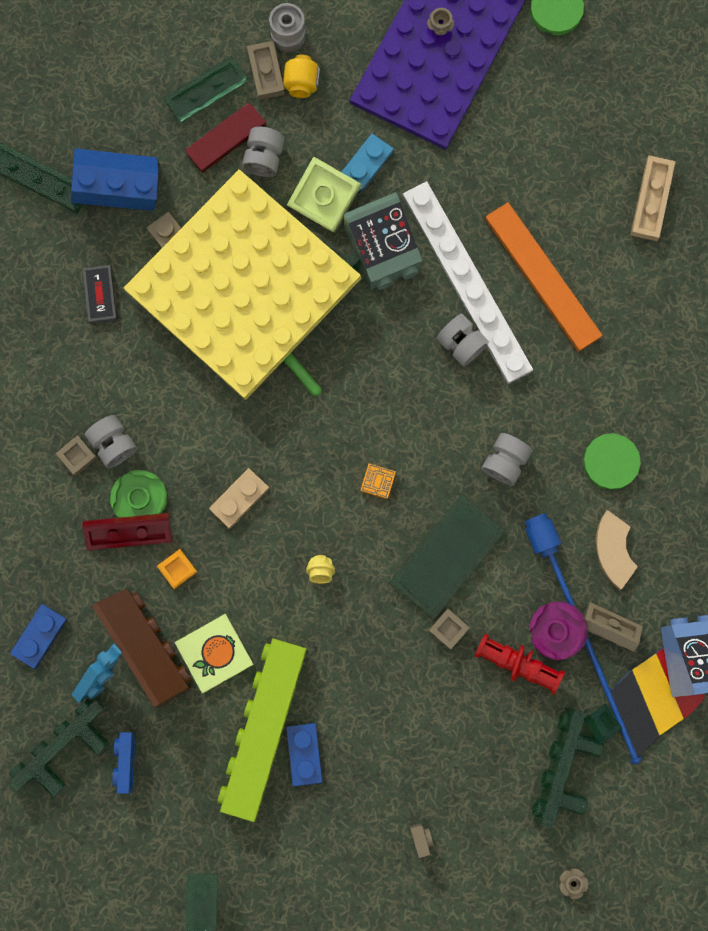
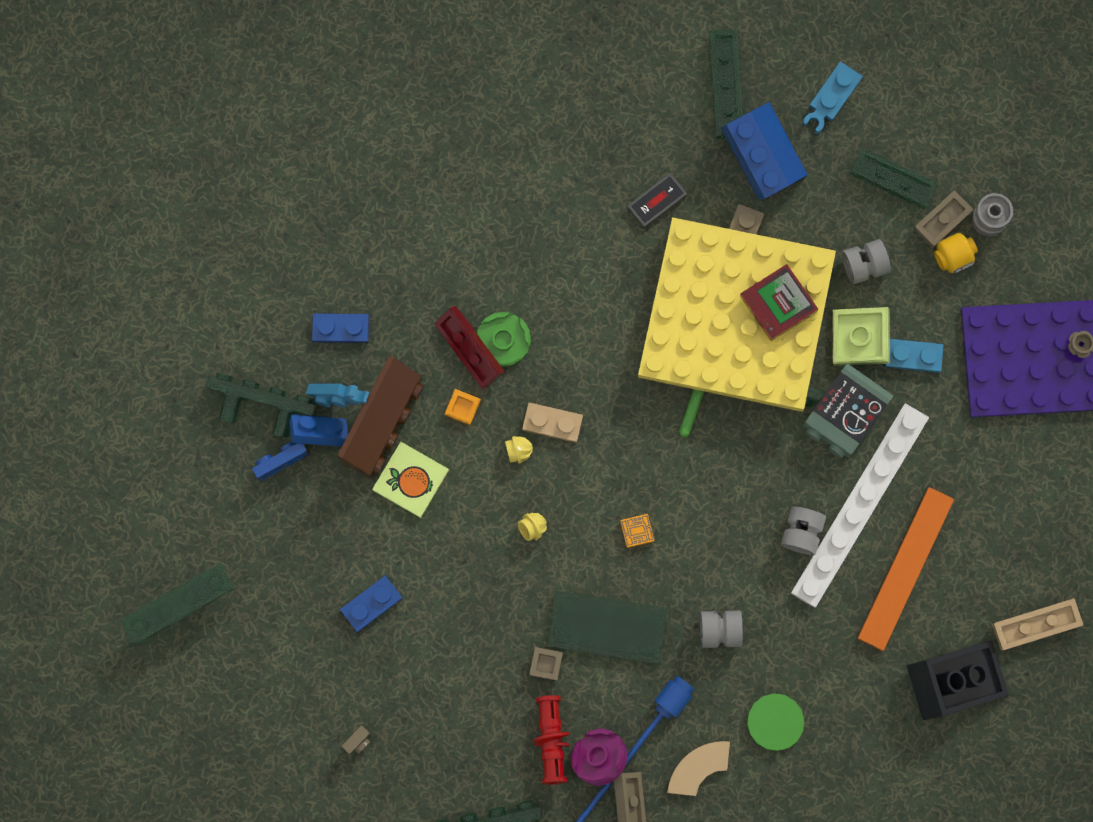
camera: 60 degrees right, 0 degrees up
(76, 455) = (507, 266): dark tan plate -> none
(102, 96) = (833, 95): none -> dark azure plate
(110, 431) = (542, 280): light grey wheel -> none
(119, 711) = (318, 430): none -> blue plate
(224, 137) = (861, 221): dark red tile -> none
(244, 541) = (518, 449): none -> light yellow plate
(255, 240) = (779, 302): none -> tile
(263, 730) = (371, 557): lime brick -> none
(663, 291) = (957, 680): none -> black slope

